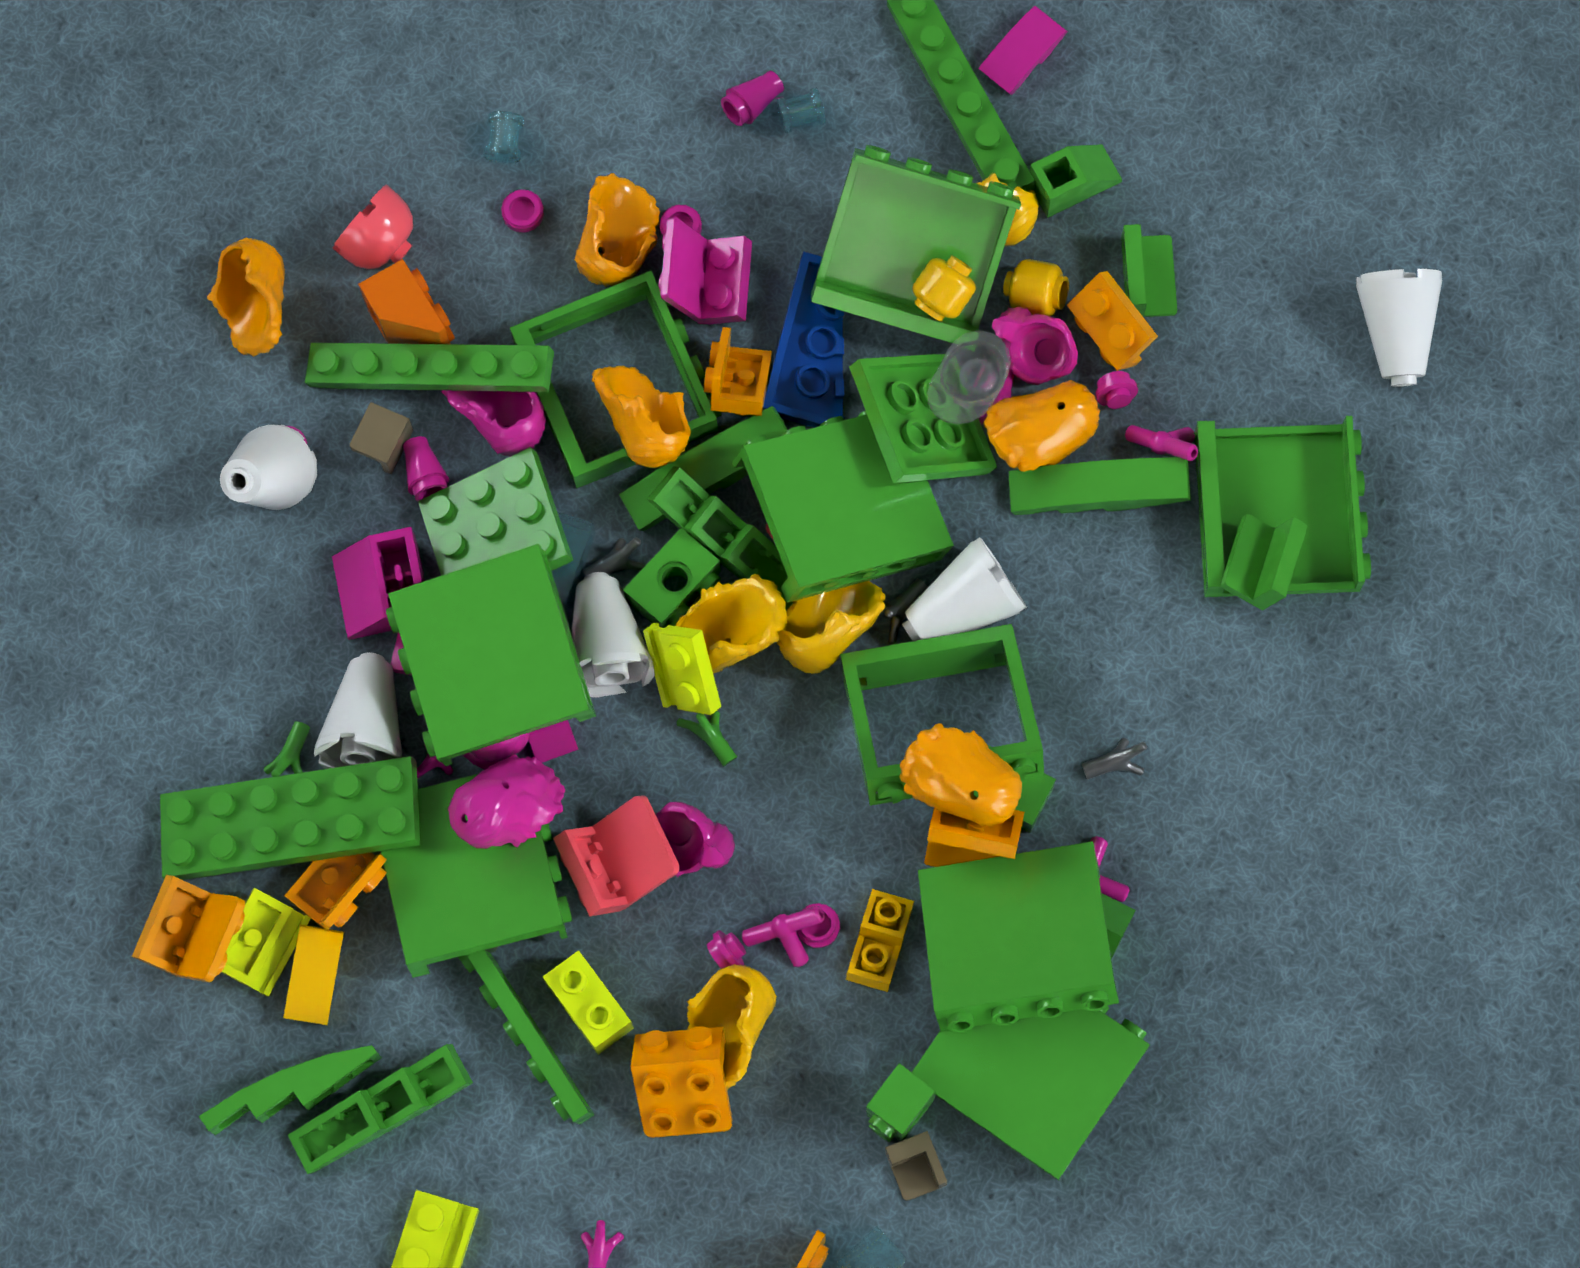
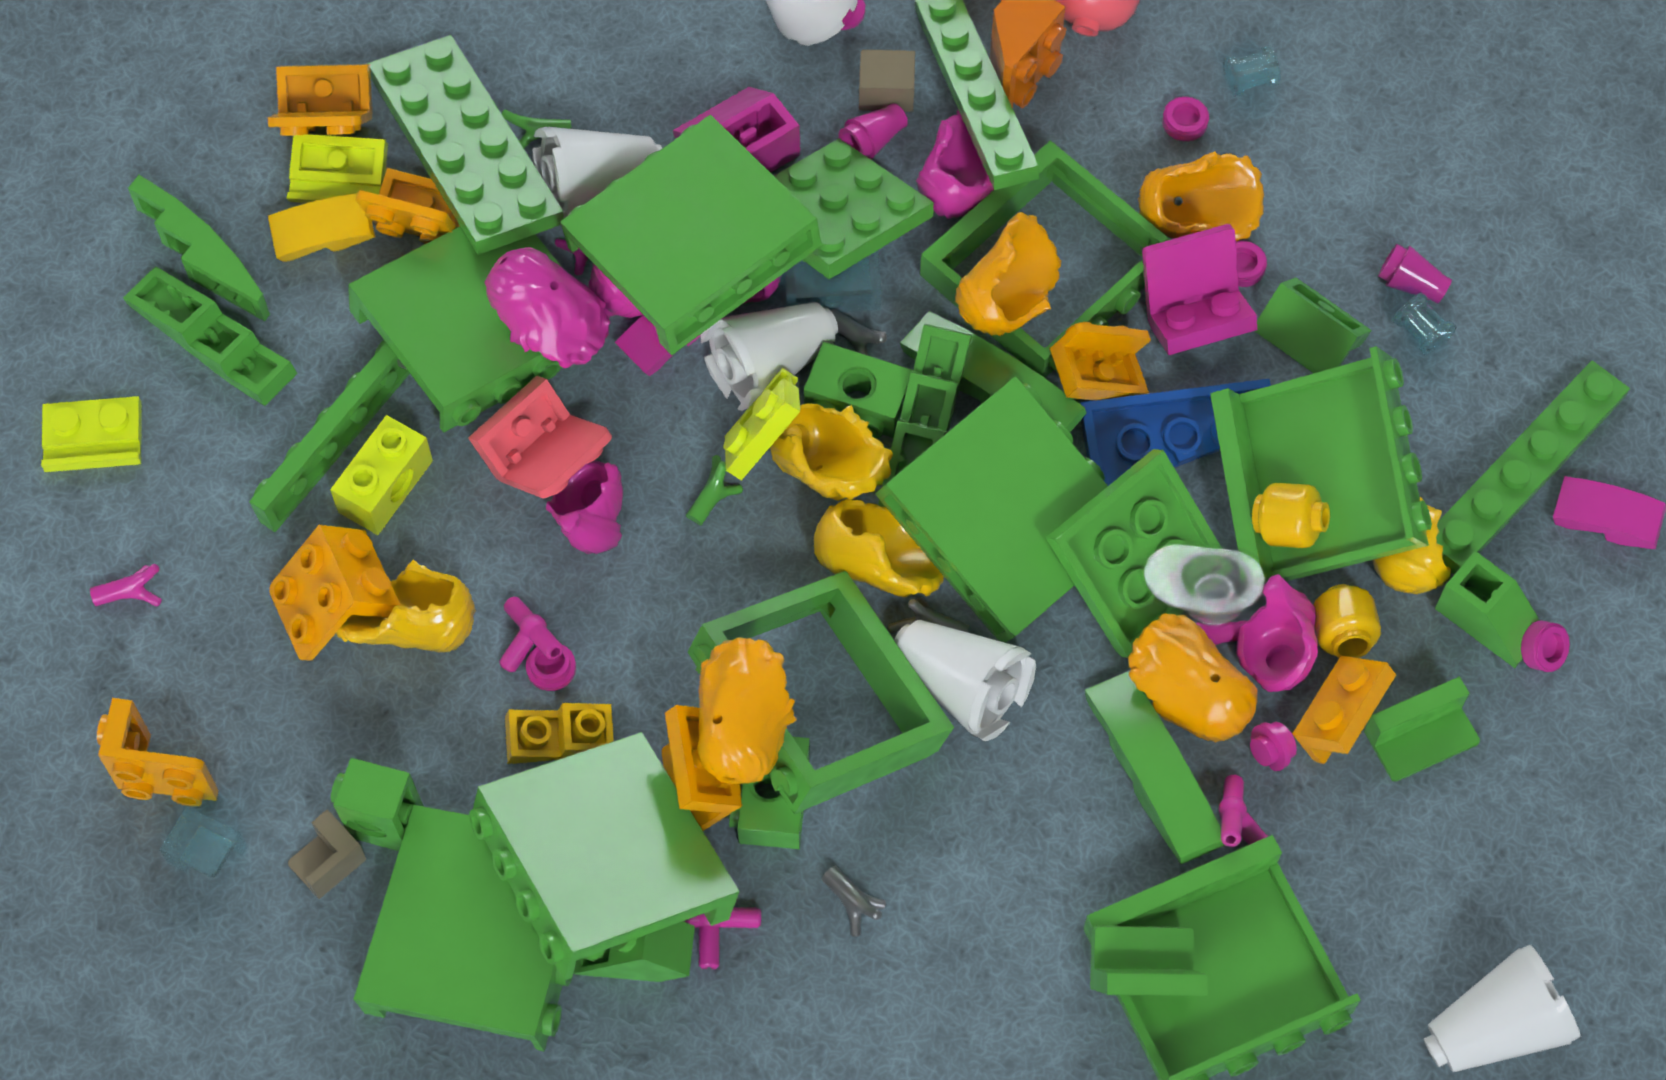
camera: 65 degrees right, 10 degrees down
(726, 949) = (488, 585): dark pink plate -> none
(765, 198) = (1309, 327): none -> bright green panel
(1116, 150) = (1545, 646): none -> dark pink tile

